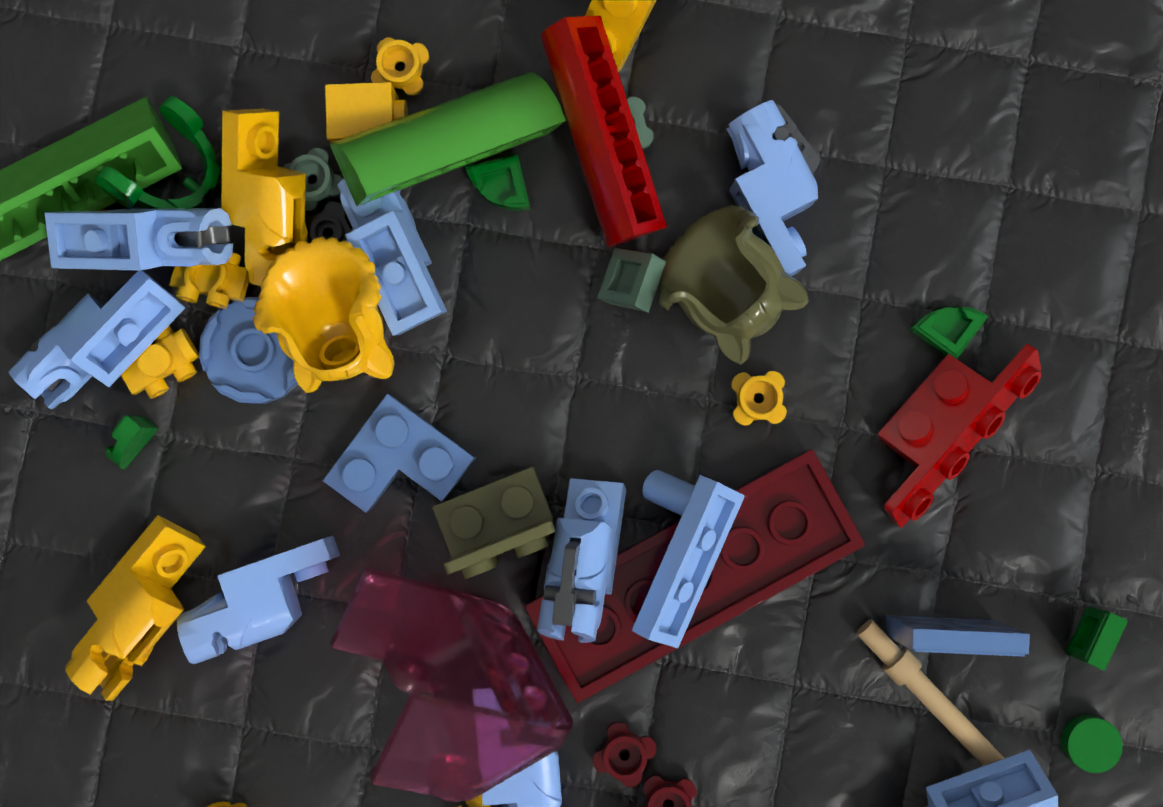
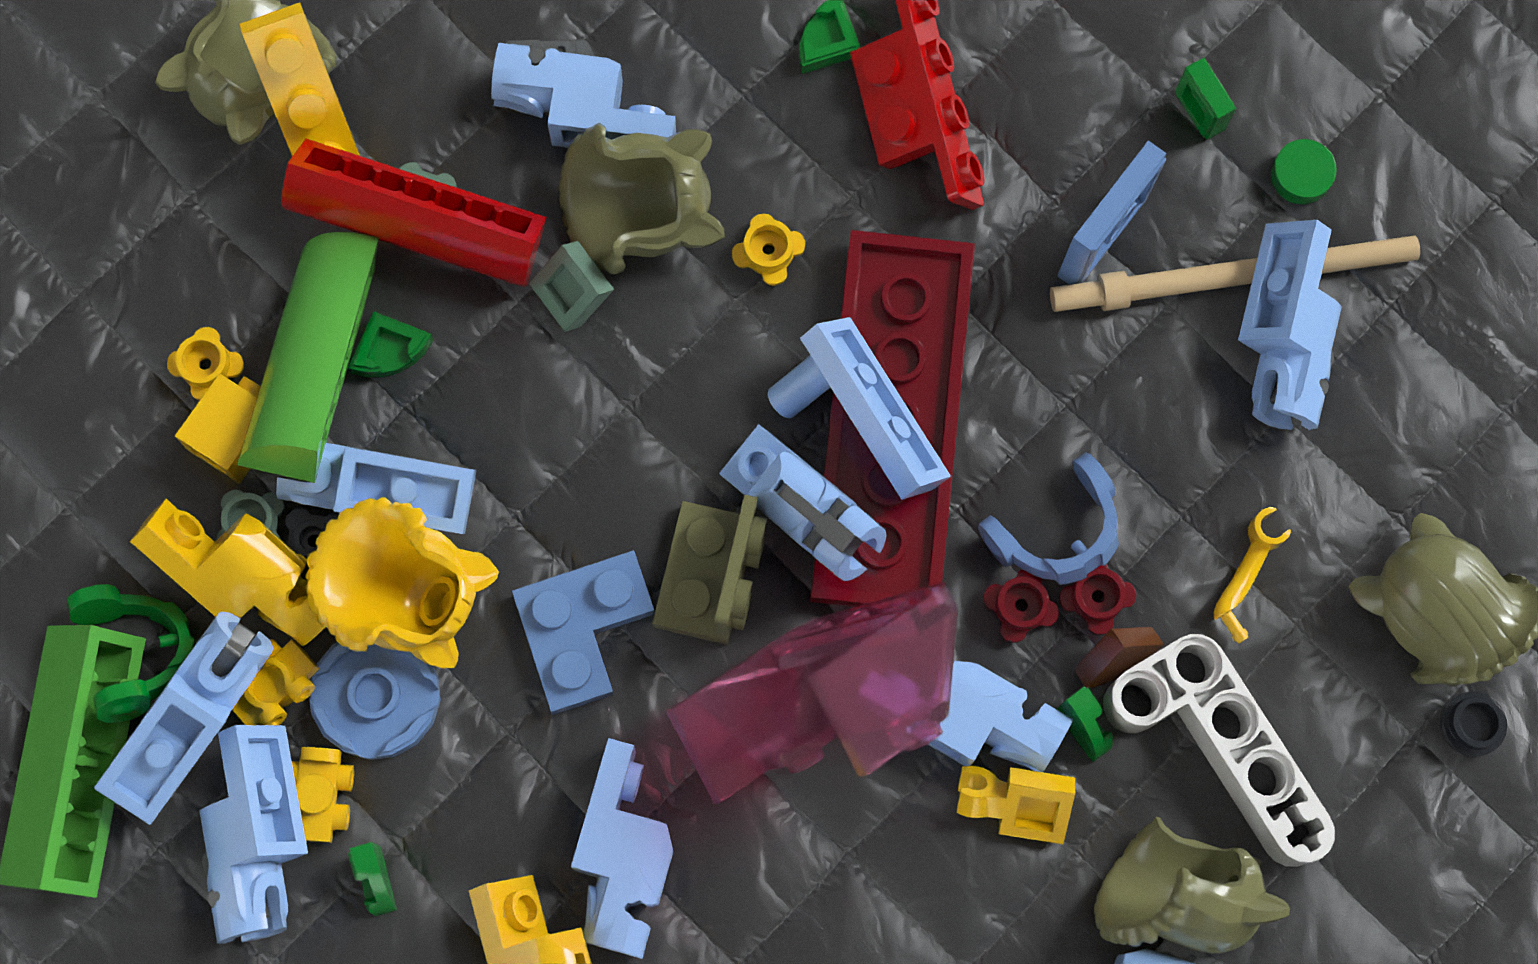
camera: 55 degrees left, 10 degrees down
(746, 757) = (1067, 570): none -> medium blue piece

